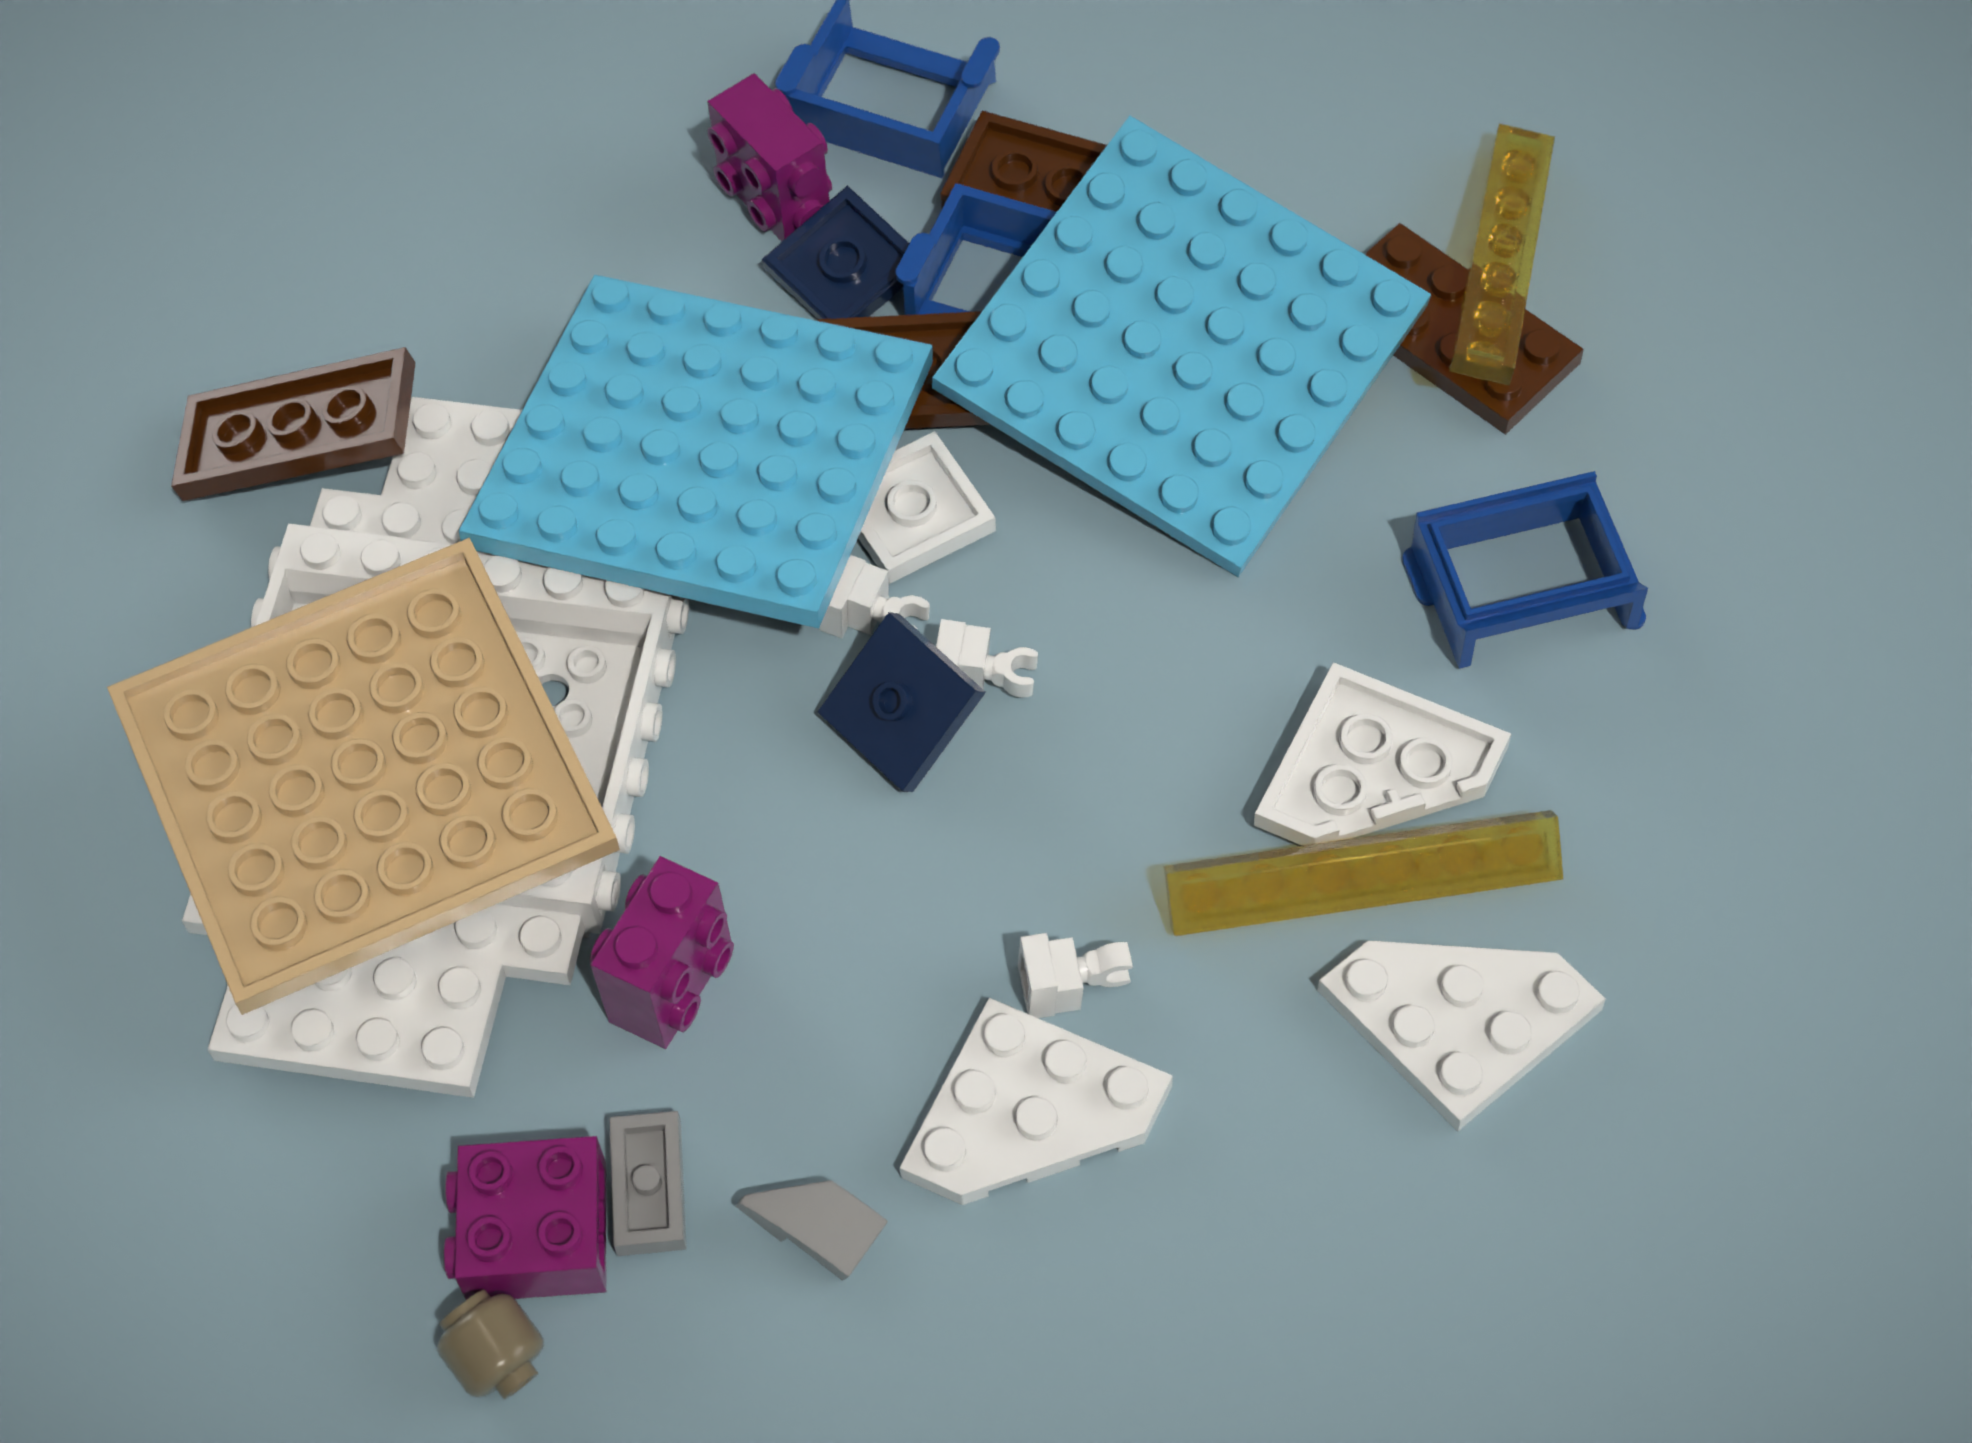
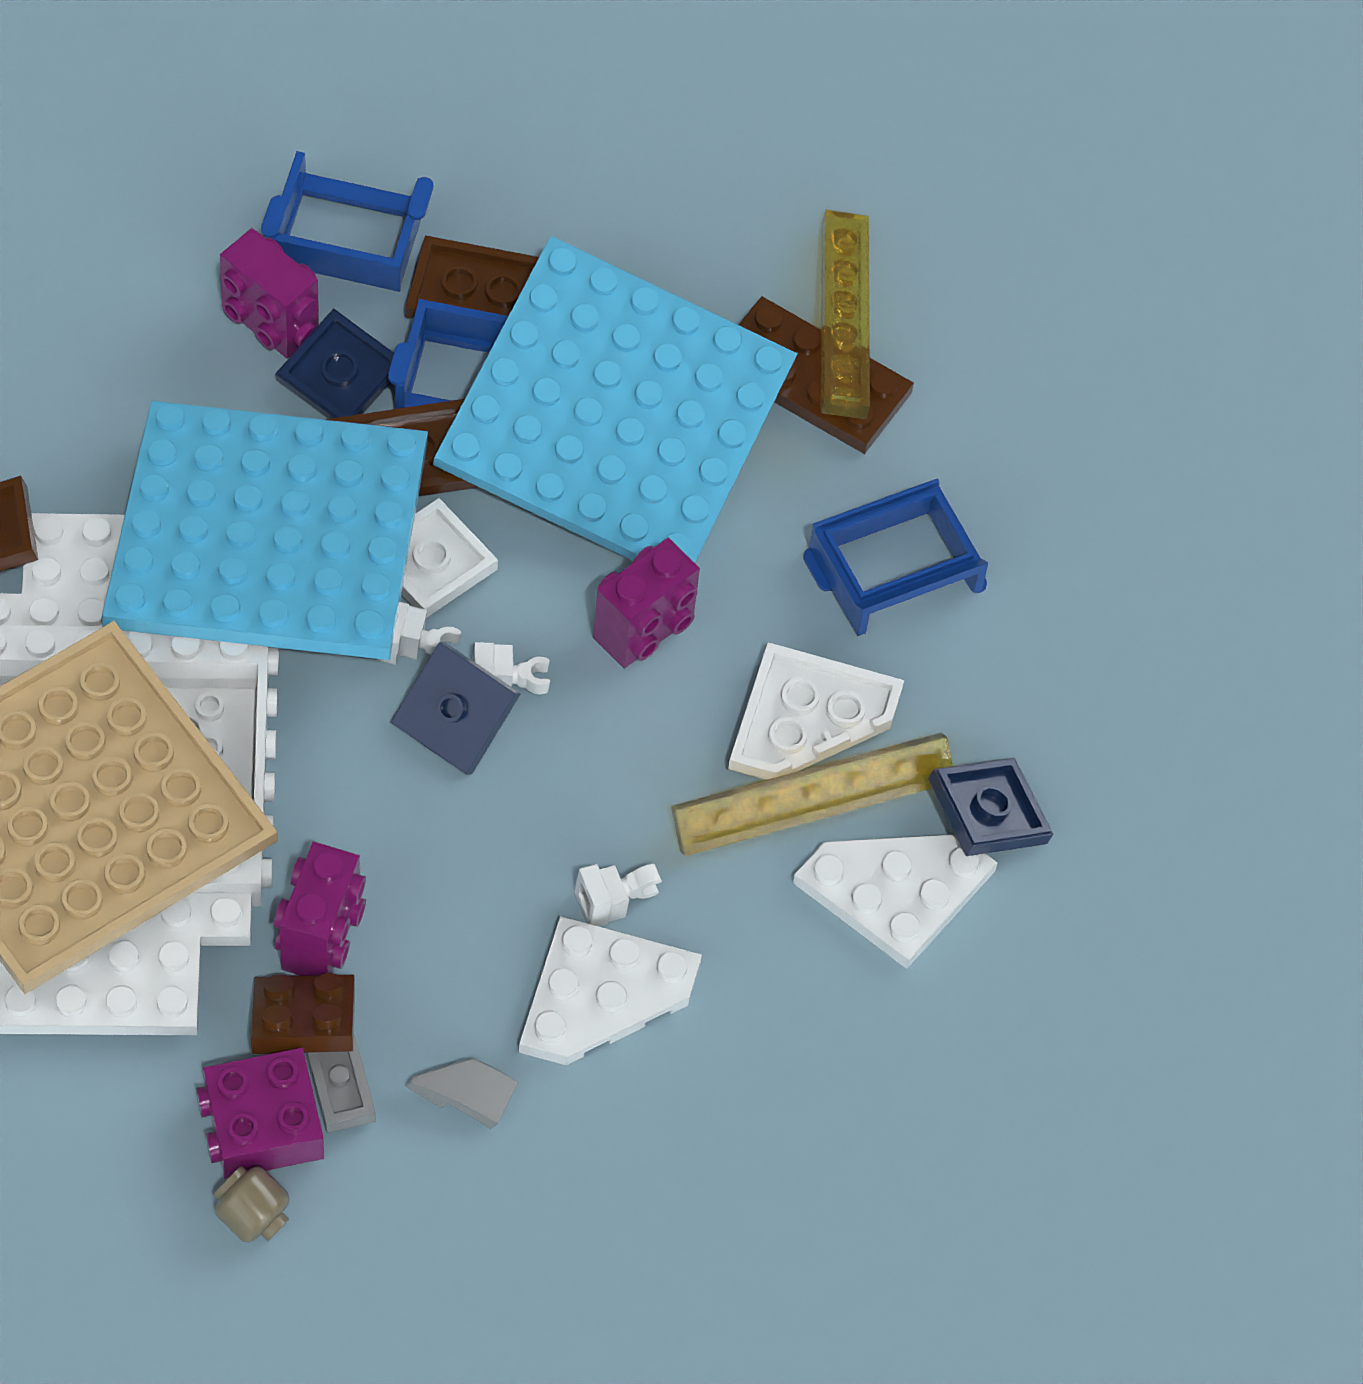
camera: 20 degrees left, 0 degrees up
(615, 1088) = (303, 1013): none -> reddish brown plate
(1176, 591) = (646, 602): none -> magenta brick
(1606, 920) = (990, 806): none -> dark blue plate

